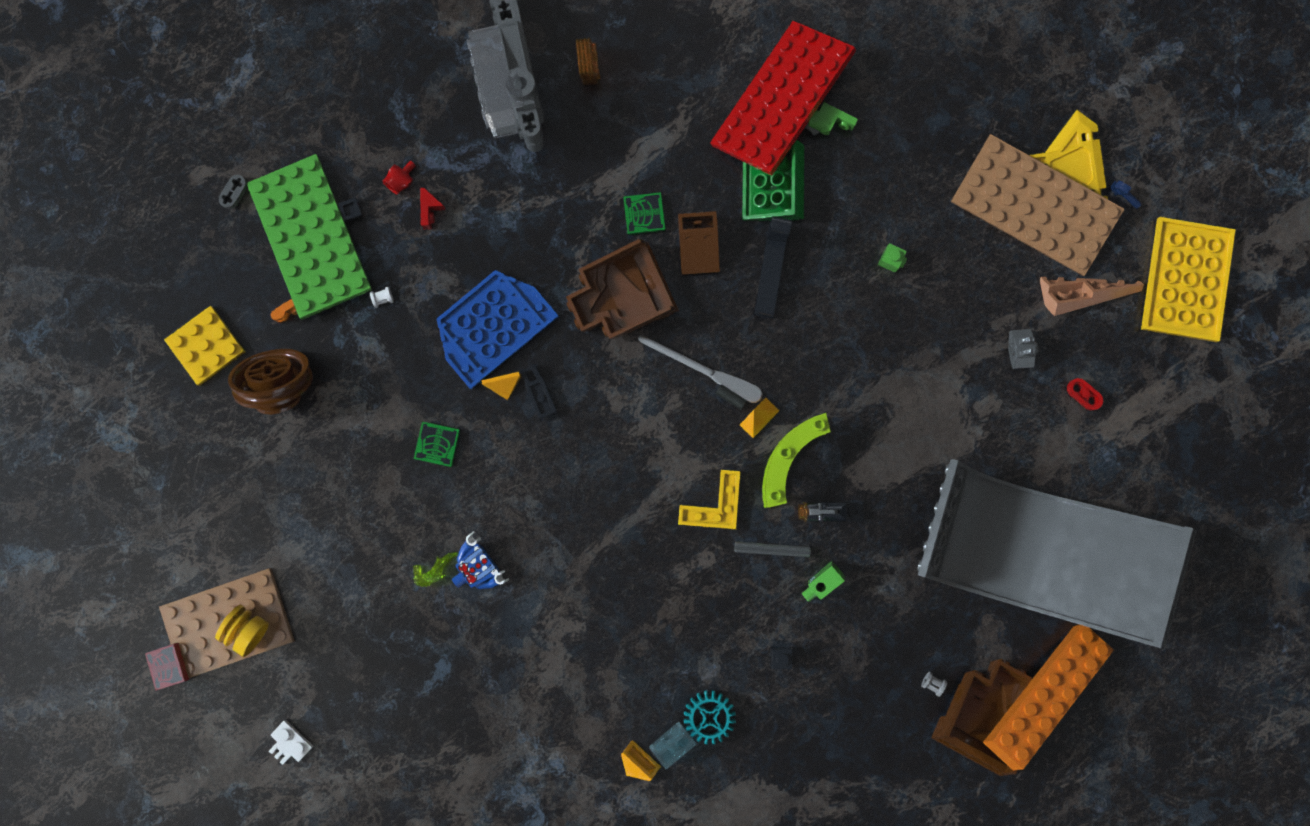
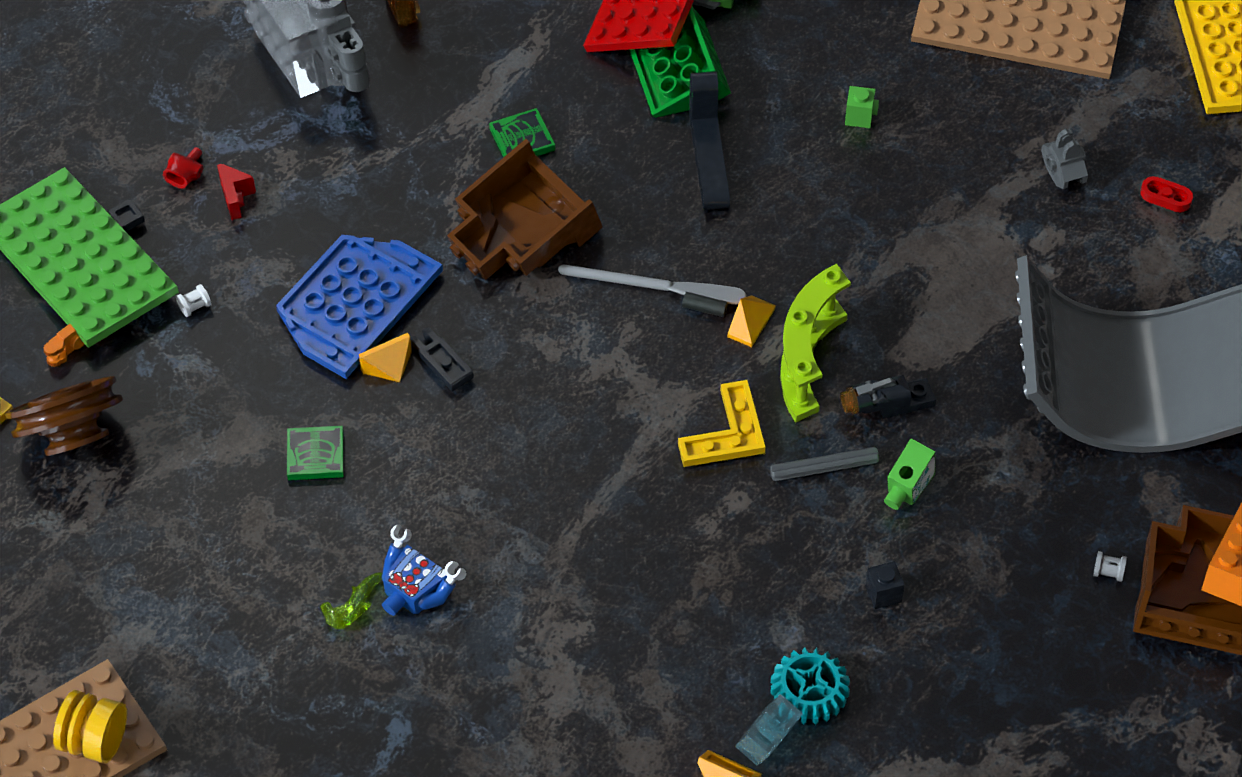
camera: 20 degrees left, 30 degrees down
(698, 242) = (603, 144): reddish brown slope -> none
(1068, 296) = (1102, 97): nougat wedge -> none

